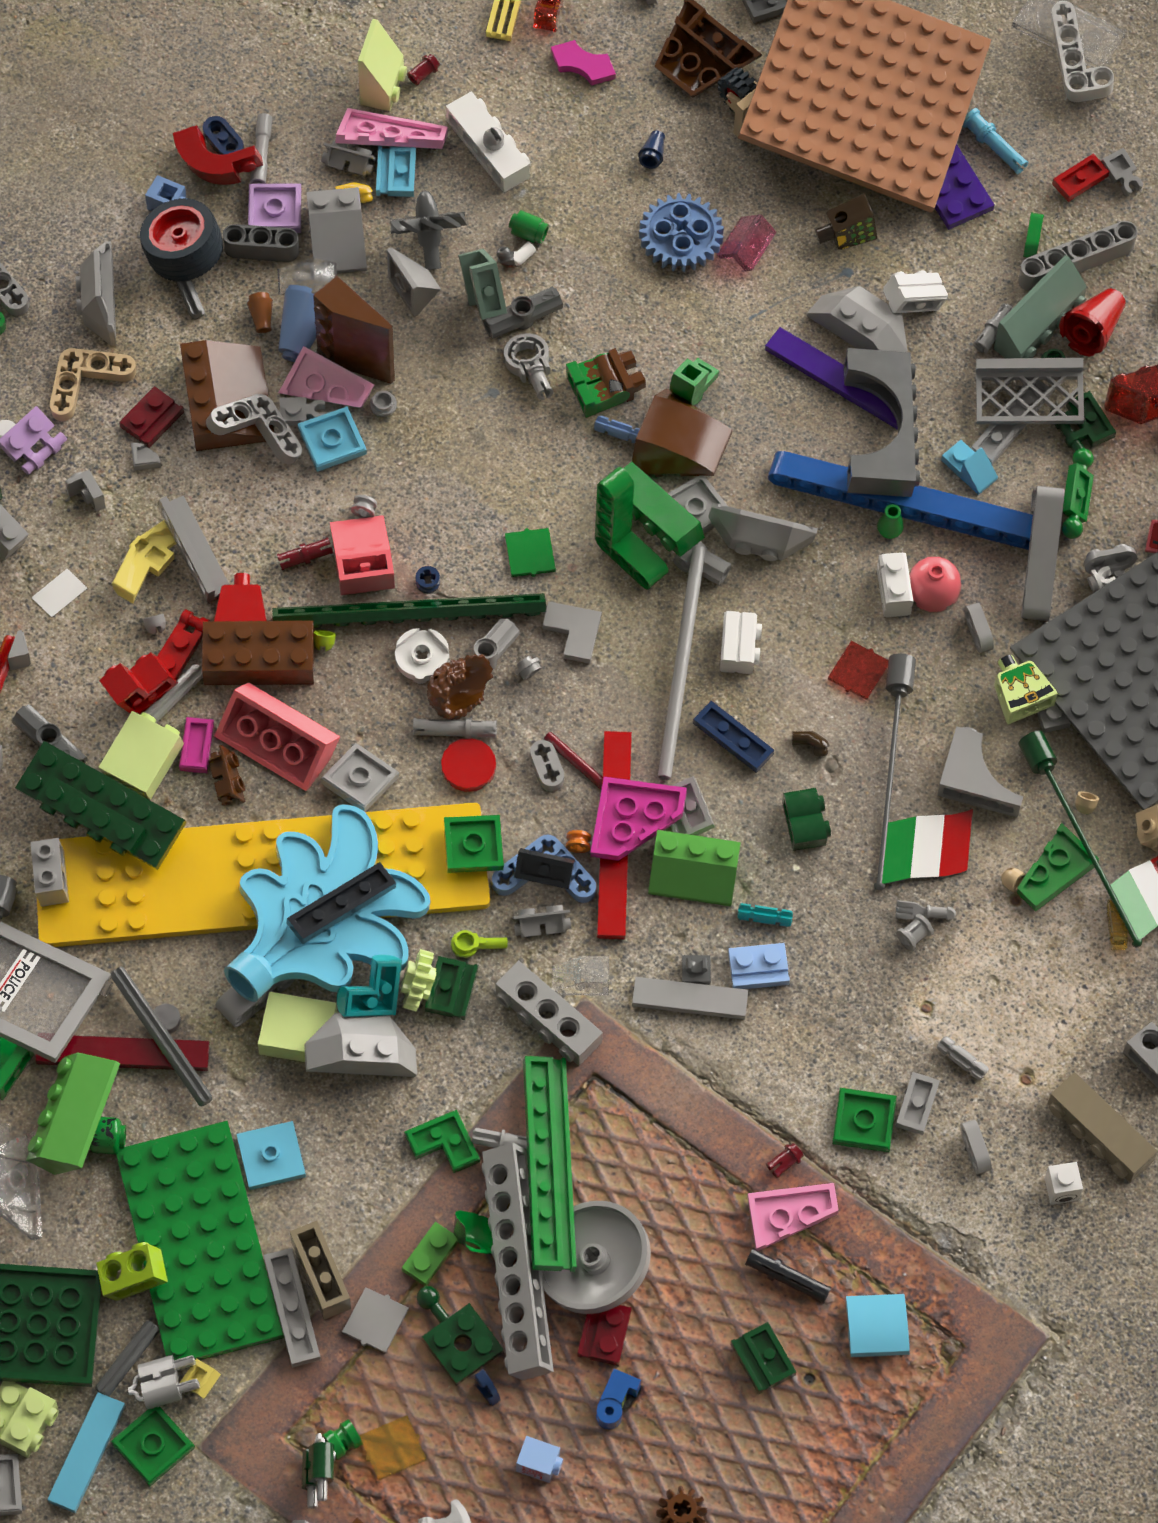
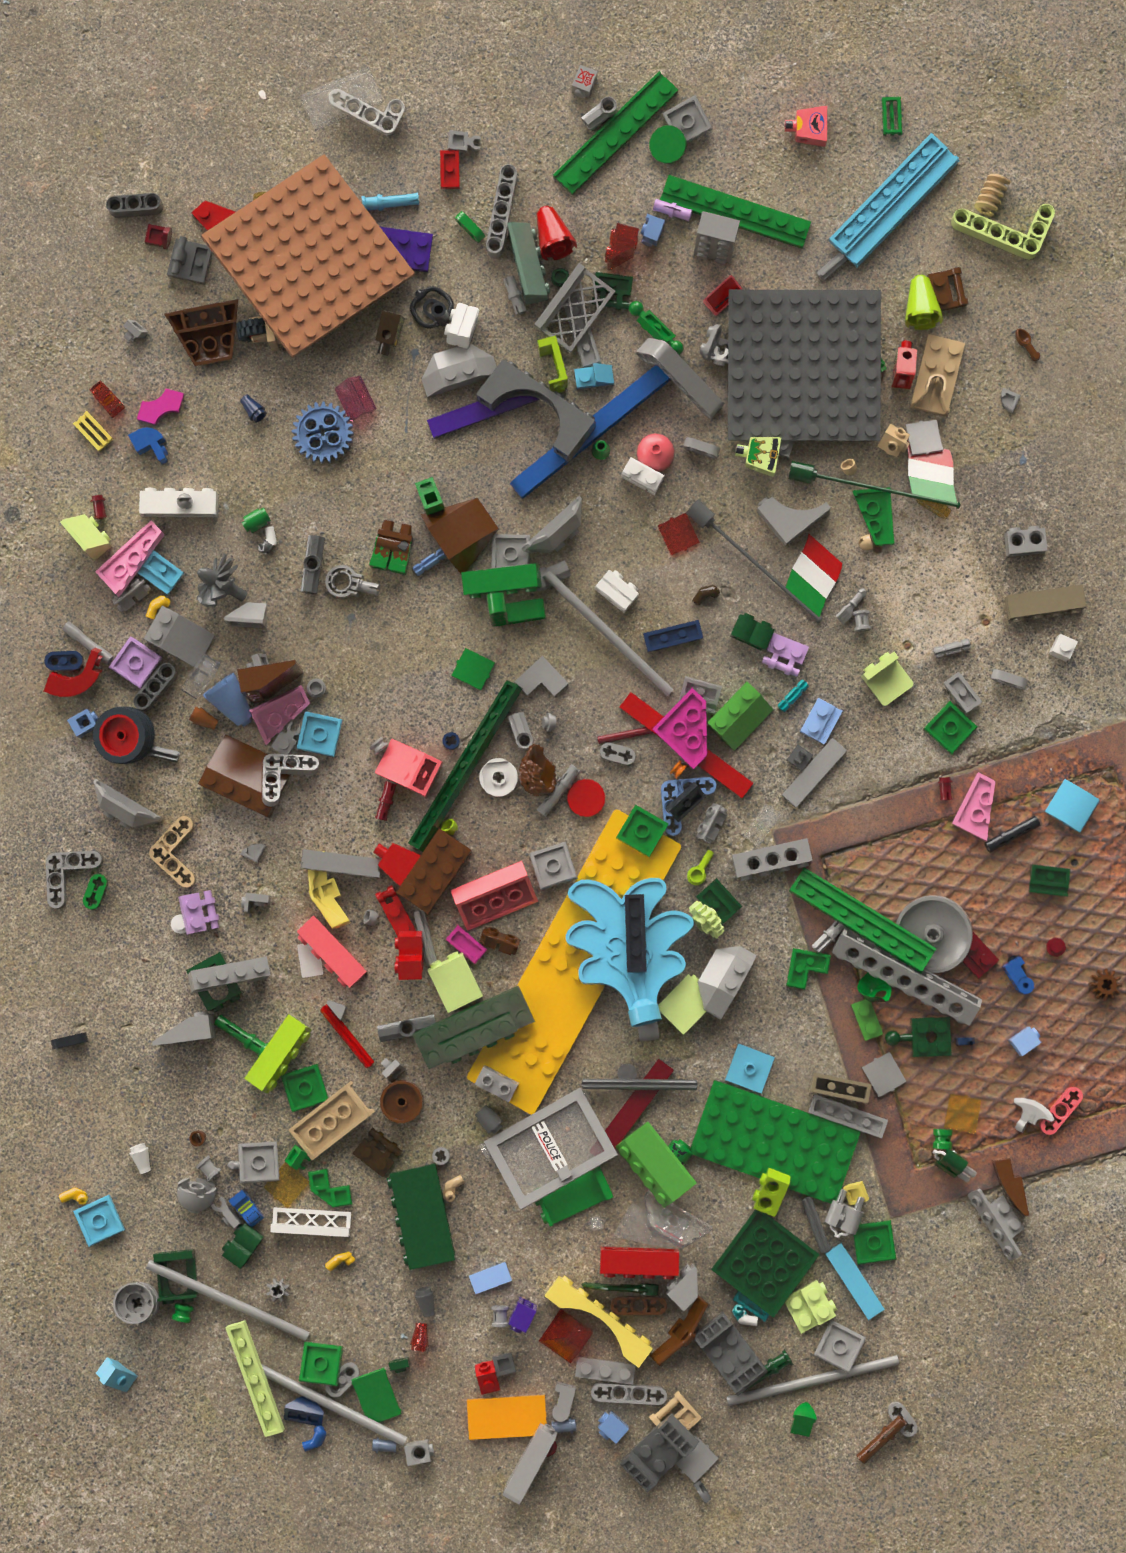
camera: 50 degrees left, 20 degrees up
(84, 605) = (335, 955): none -> coral brick
(151, 417) = (229, 830): dark red plate -> none
(377, 998) = (703, 950): teal brick -> none
(482, 283) = (284, 576): sand green panel -> none
(535, 71) = (147, 439): none -> blue brick
(685, 1421) = (1055, 947): none -> dark red plate
(815, 872) = (787, 649): none -> lavender plate
(867, 1003) = (887, 679): none -> yellowish green bracket
(910, 254) = (439, 314): none -> black piece
(961, 396) = (550, 346): none -> lime panel

